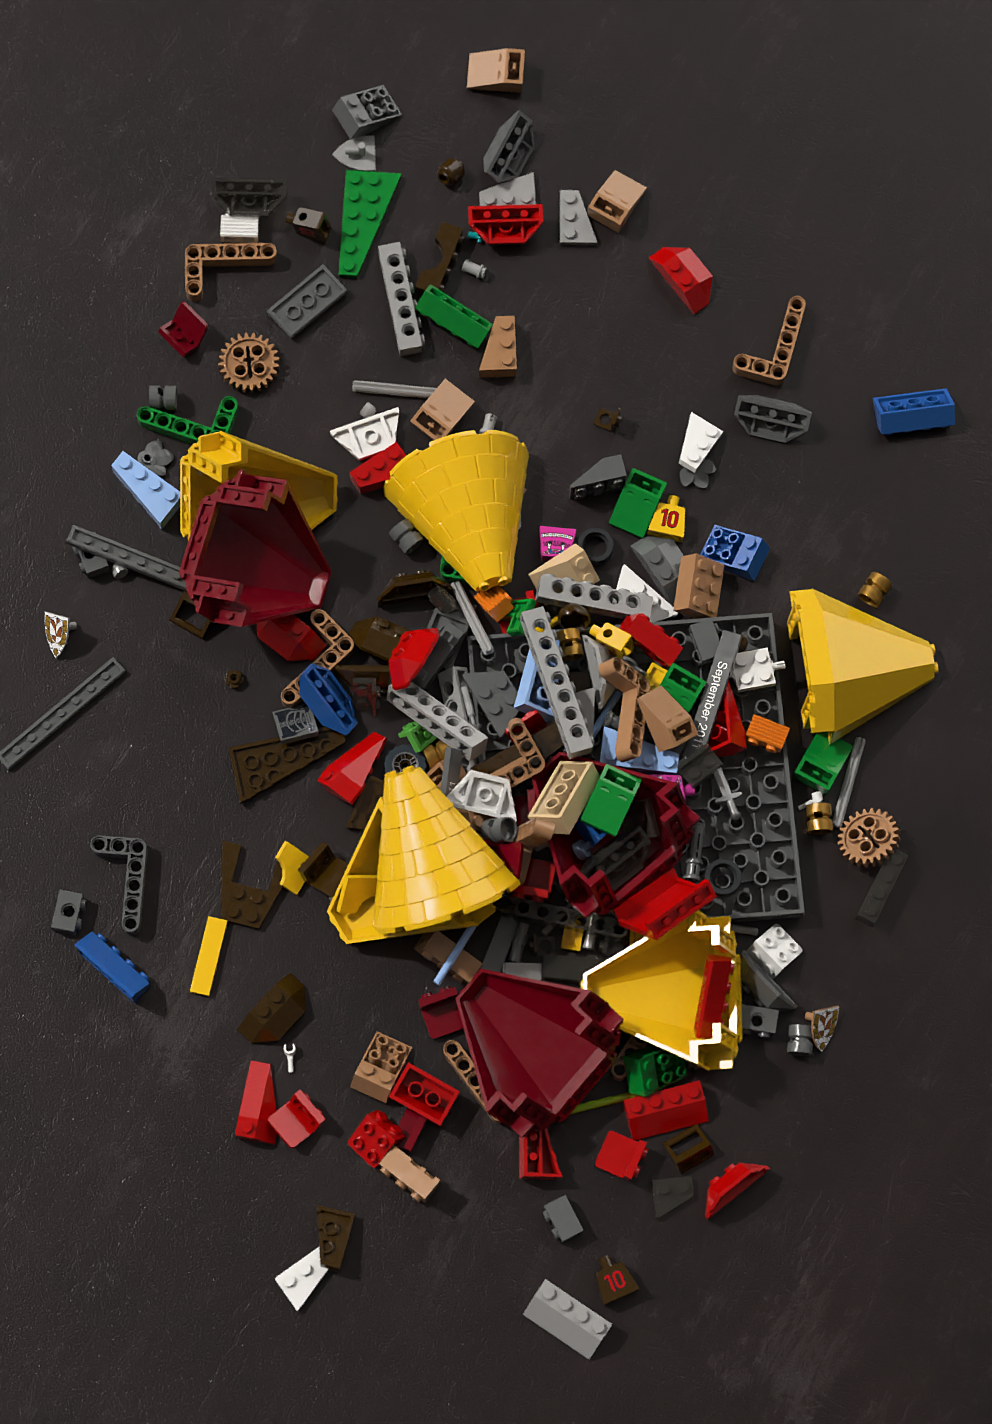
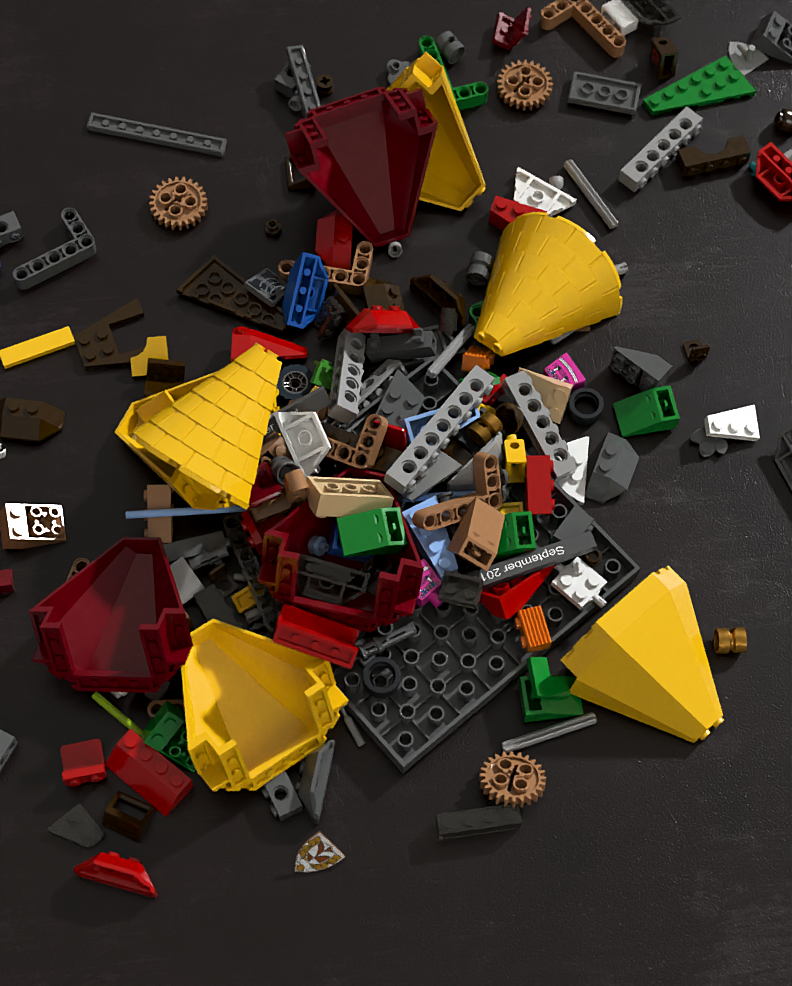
camera: 55 degrees right, 10 degrees down
(57, 631) = (219, 91): shield -> none
(120, 536) = (322, 88): none -> dark brown wheel
(149, 490) = (373, 69): light blue wedge -> none
(168, 742) = (178, 203): none -> medium nougat gear
(333, 595) = (399, 249): none -> light grey hinge
(424, 1094) = (27, 570): red slope -> none
(441, 1012) = (107, 535): dark red bracket -> none
(442, 411) = (603, 225): medium nougat slope -> none
(454, 316) = (678, 189): green brick -> none
(469, 706) = (374, 395): light grey piece -> none
(472, 268) = (729, 186): light grey pin -> none
(500, 351) = (682, 238): medium nougat wedge -> none
(537, 1157) = (35, 693): red wedge -> none
(668, 520) = (651, 444): yellow torso -> none
(698, 586) = (615, 499): medium nougat brick -> none
(712, 994) = (271, 731): red slope -> none
(728, 797) = (455, 635): flat silver sword -> none
(738, 551) = (669, 512): blue slope -> none
(774, 950) = (354, 769): white bracket -> none
(800, 1040) = (289, 844): dark grey wheel -> none
(812, 758) = (542, 683): none -> green tile
(816, 798) = (514, 717): white hand -> none
(819, 825) = (491, 730): pearl gold wheel -> none

